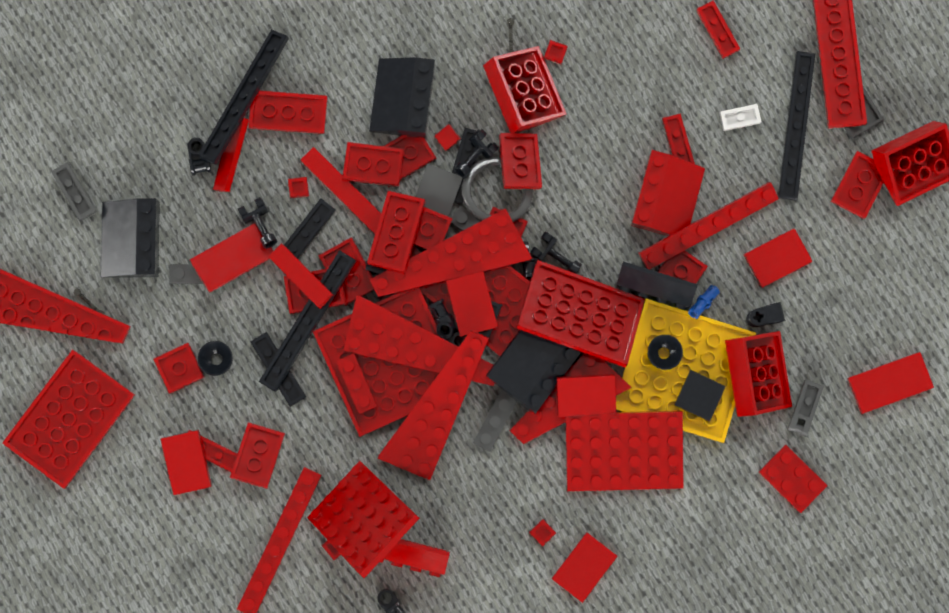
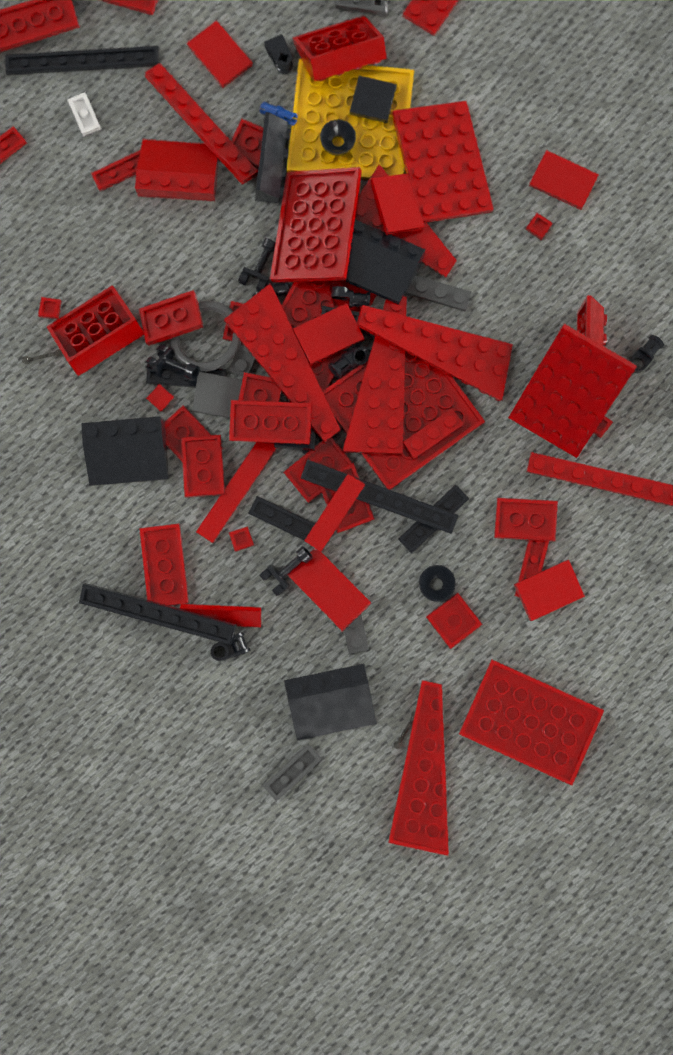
camera: 95 degrees left, 0 degrees up
(501, 337) = (346, 294): none -> black connector

